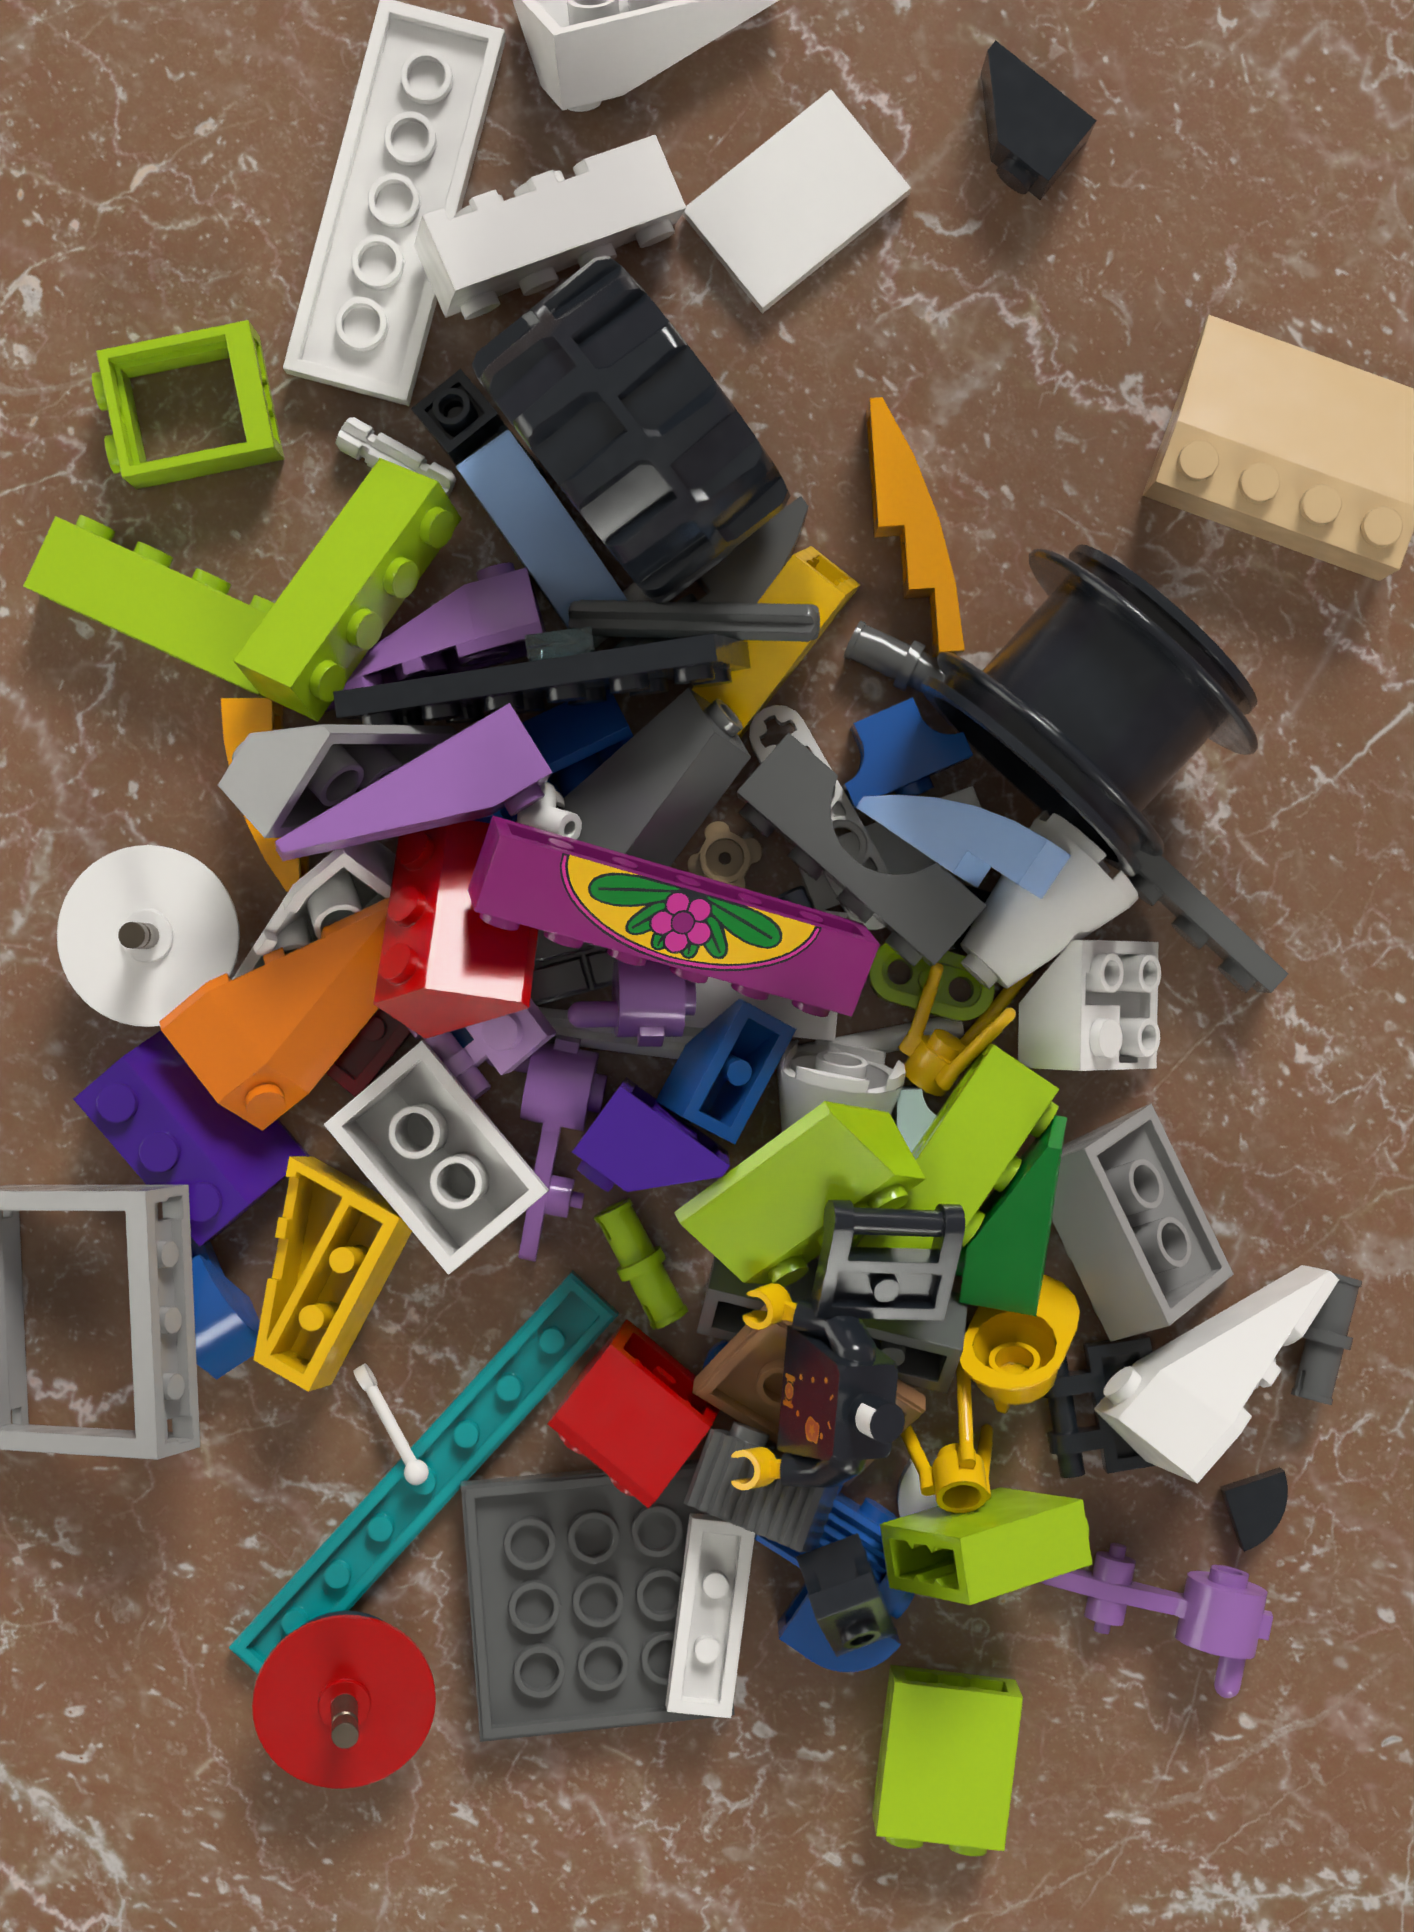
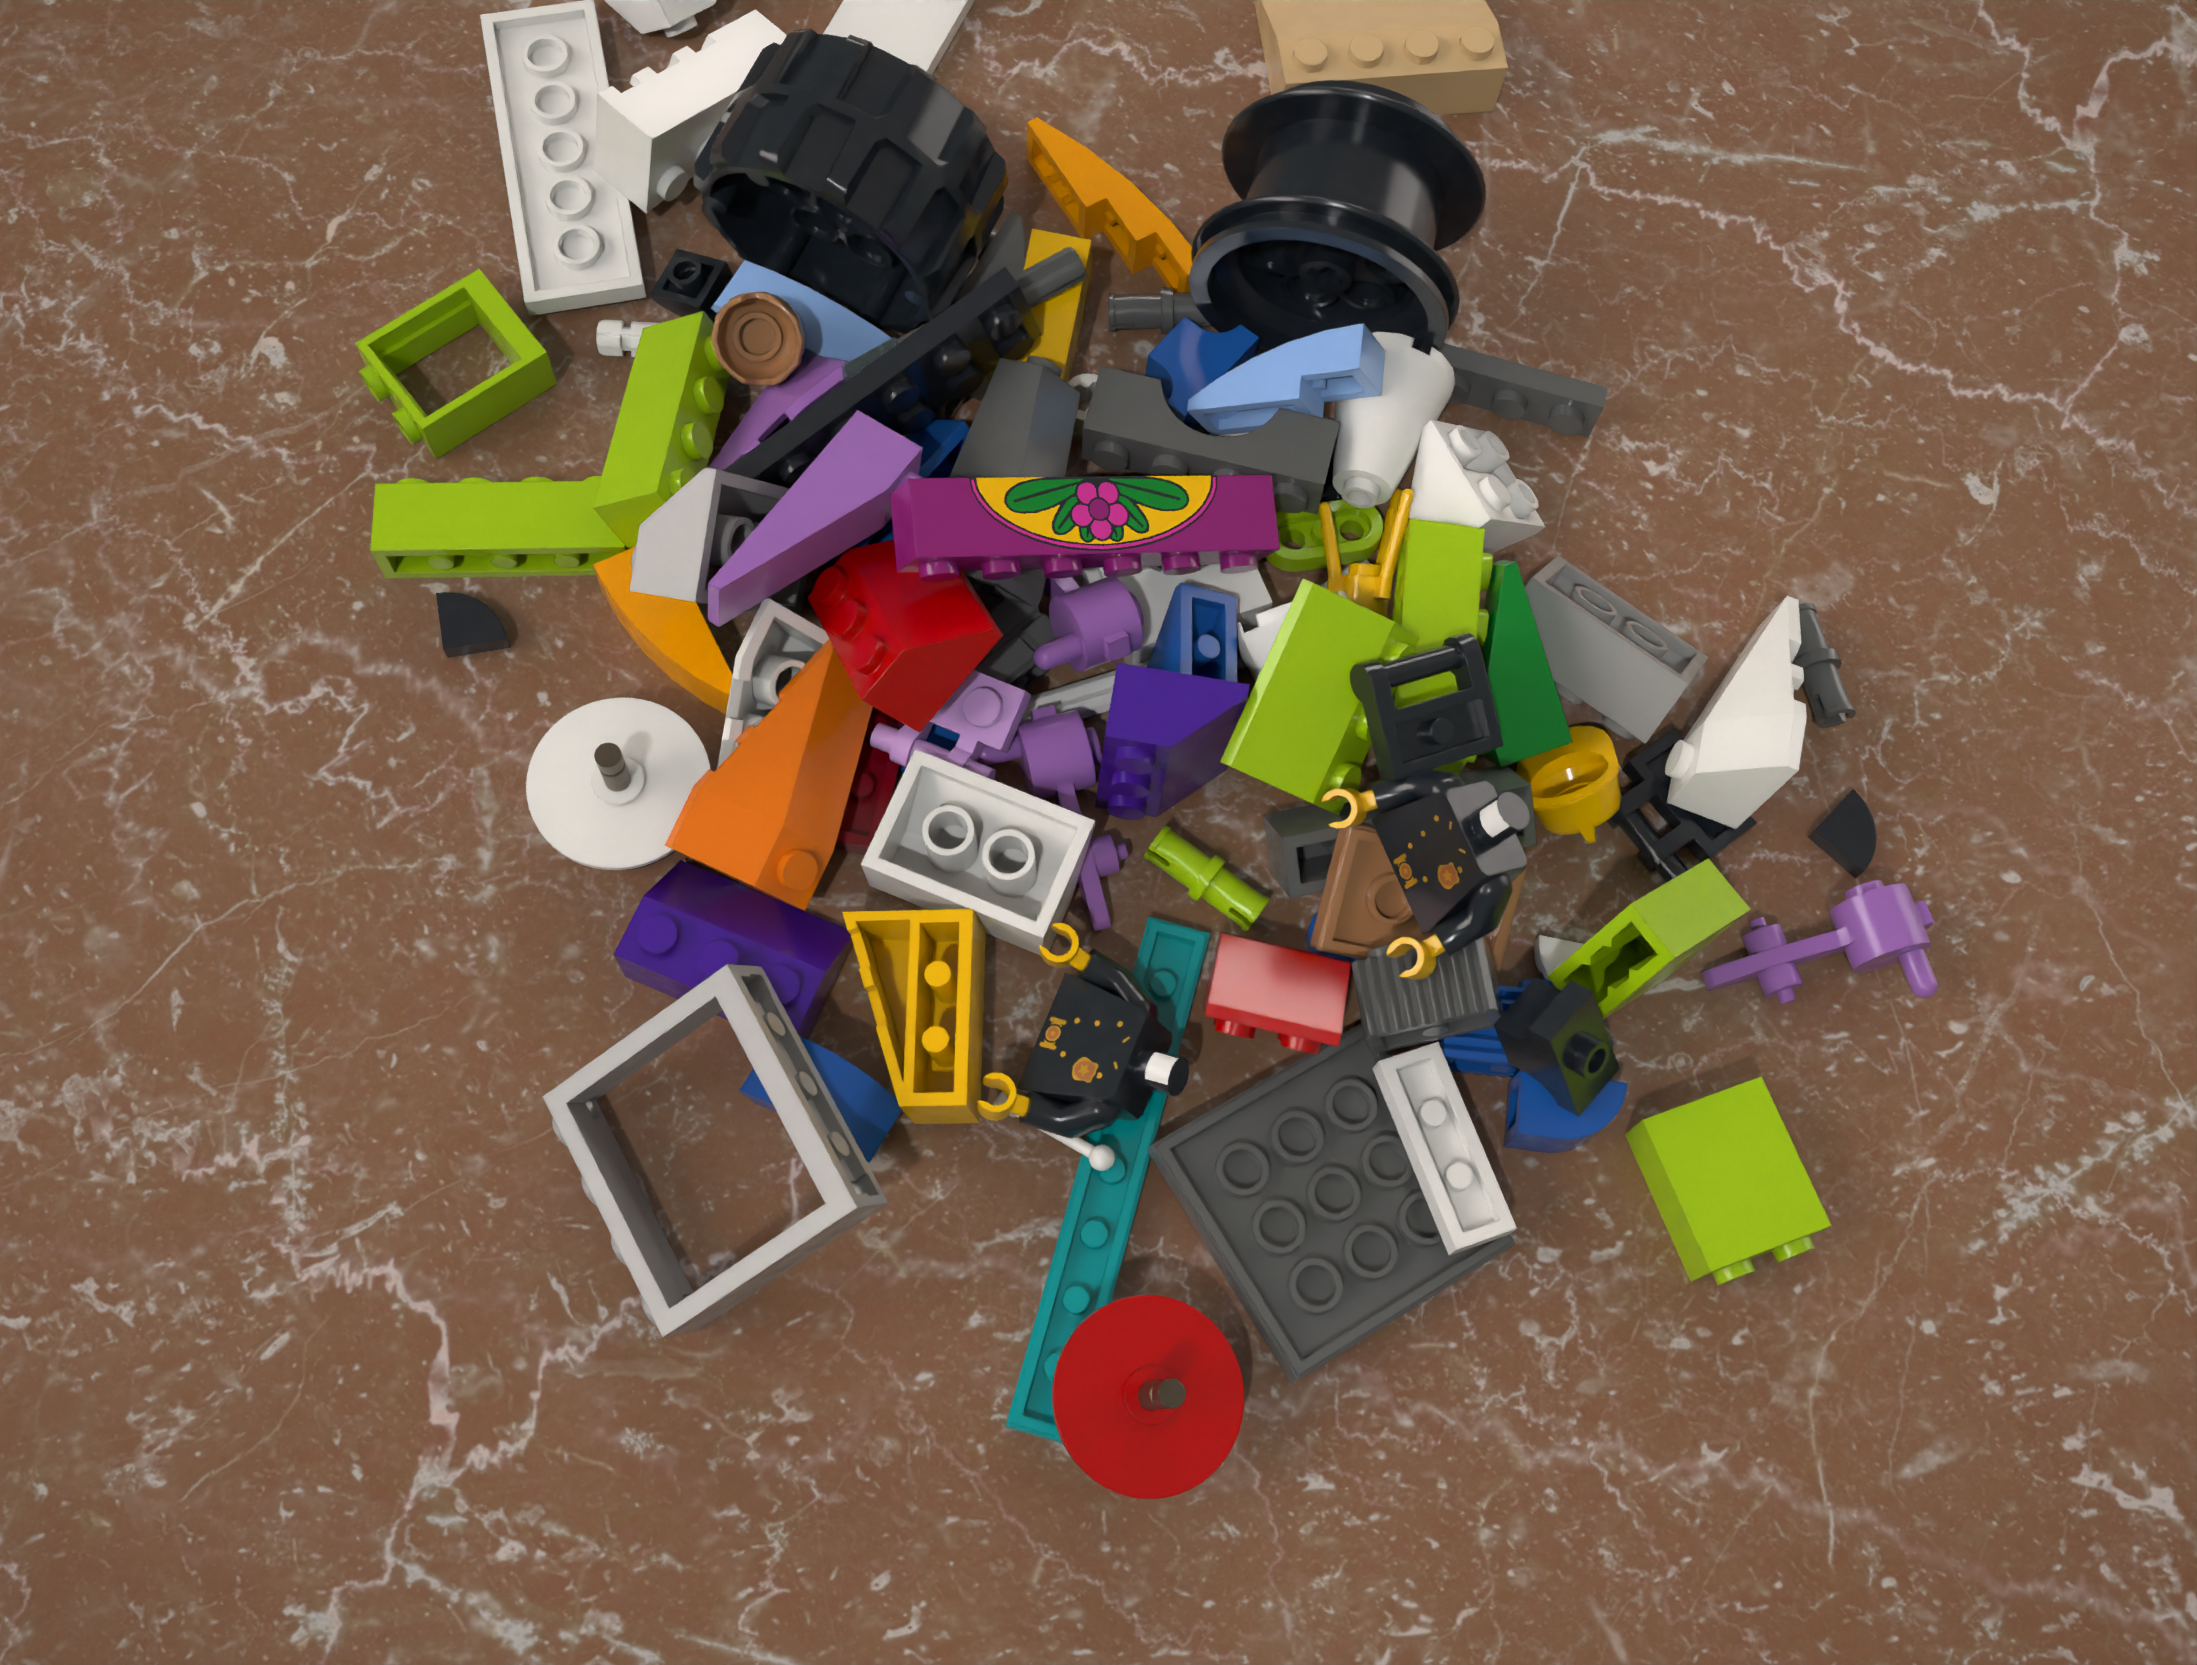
camera: 35 degrees left, 20 degrees down
(92, 687) = (468, 625): none -> black tile
(451, 1385) = (1094, 1053): none -> black torso
(474, 544) = (758, 338): none -> medium nougat hair
(958, 1473) = (1585, 894): yellow plant -> none

